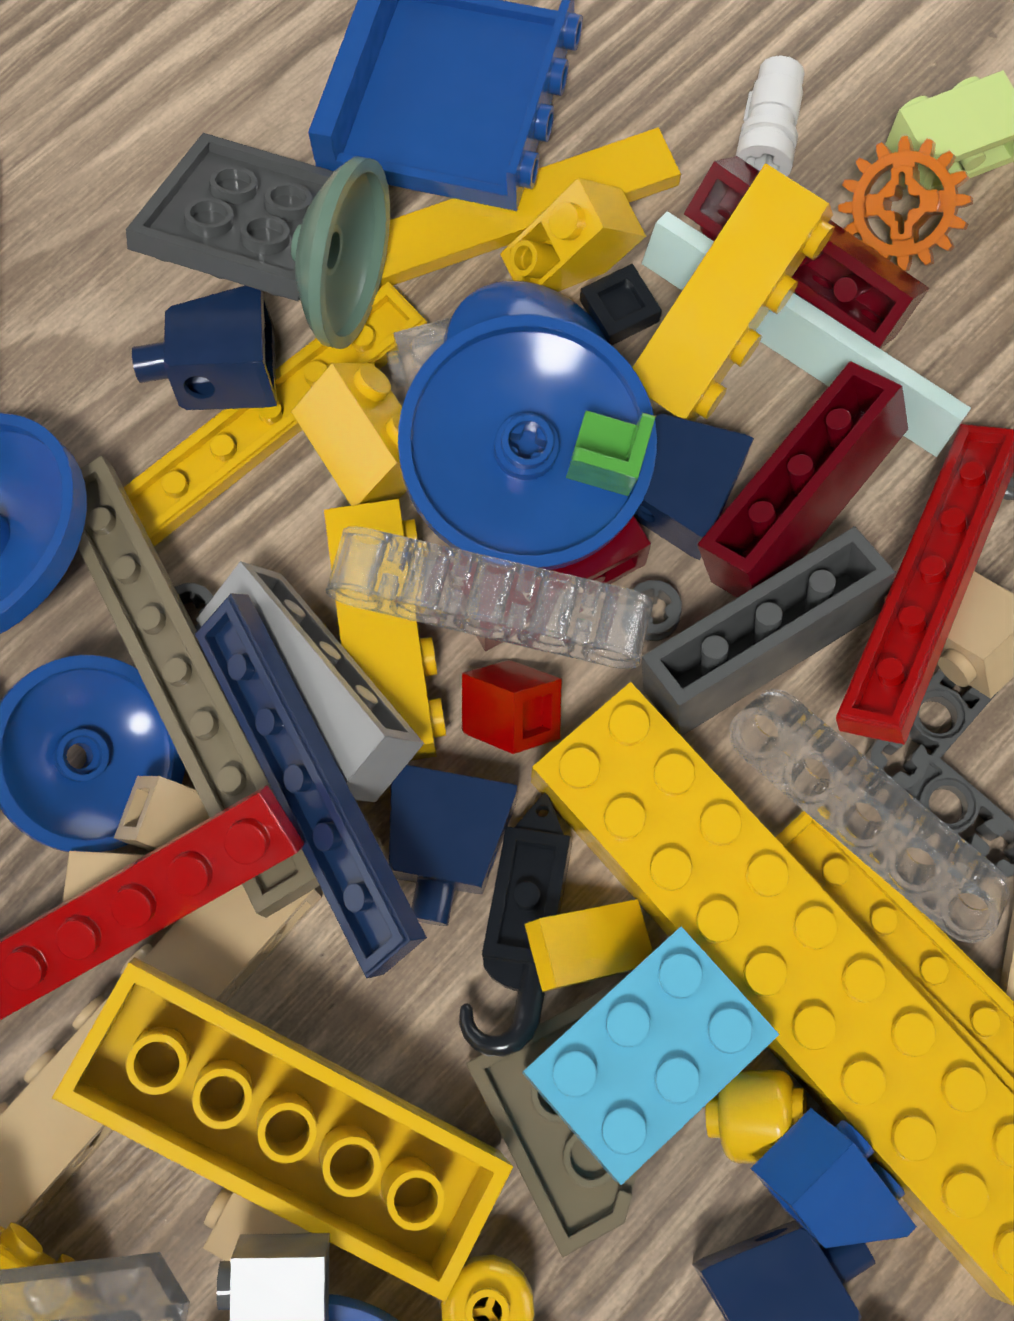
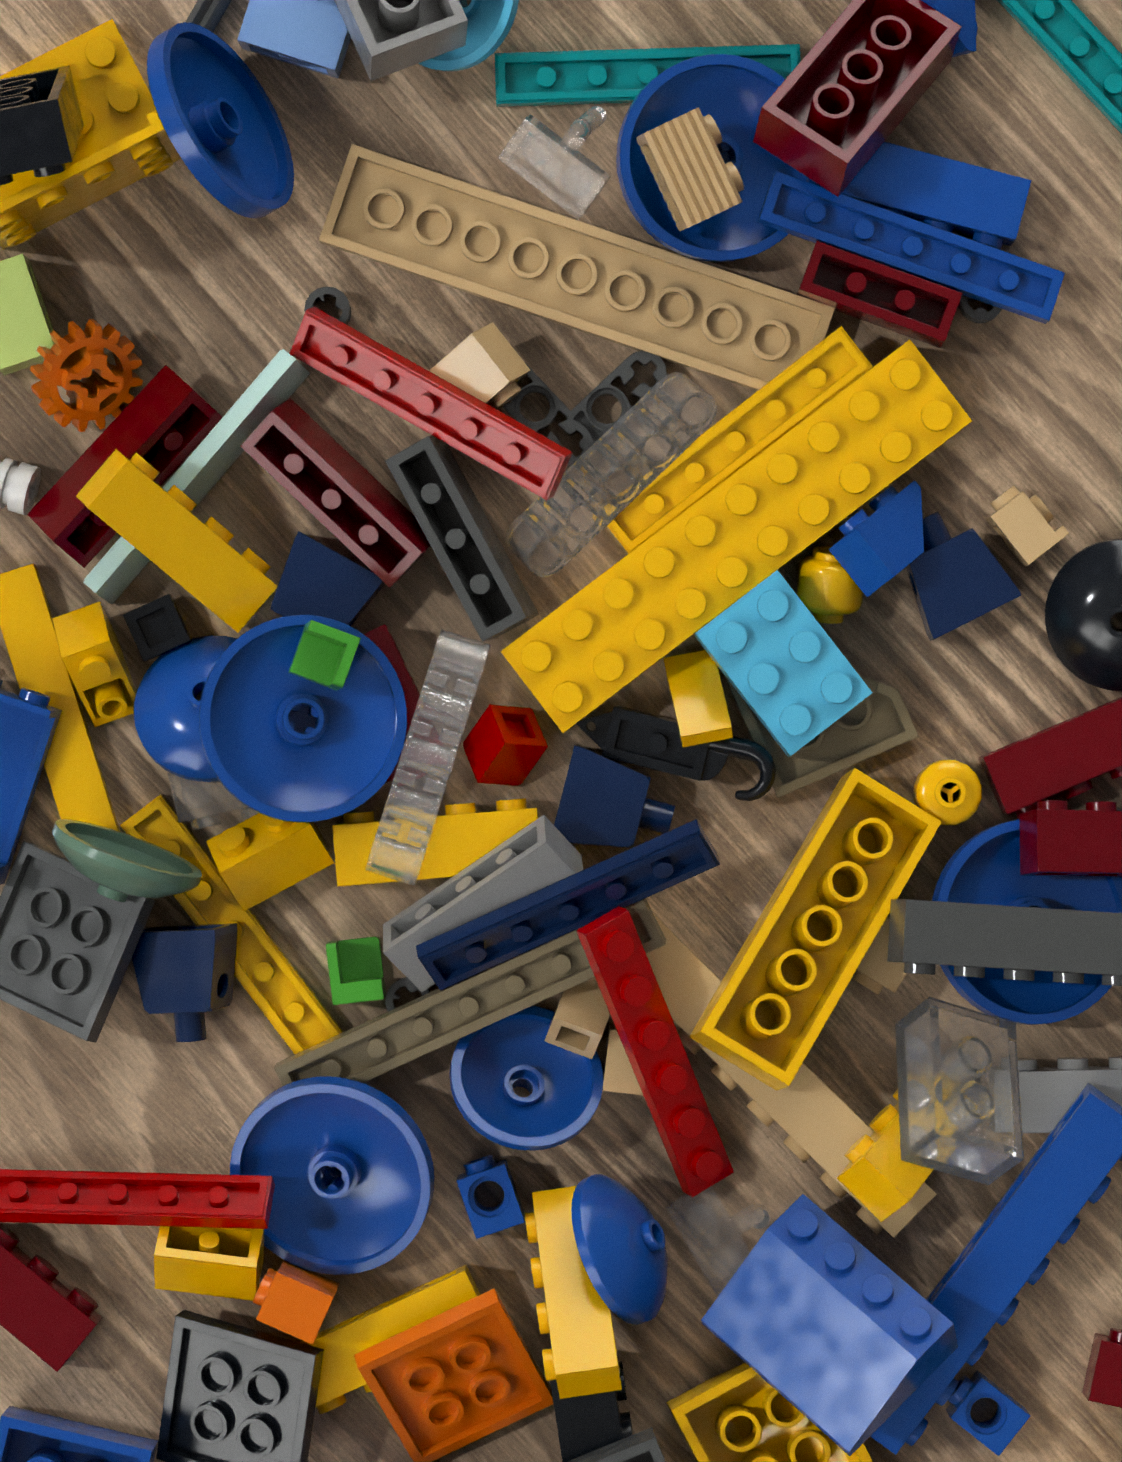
camera: 90 degrees left, 15 degrees up
(219, 539) = (355, 970): none -> bright green panel
(672, 612) = (434, 609): dark grey bush -> none

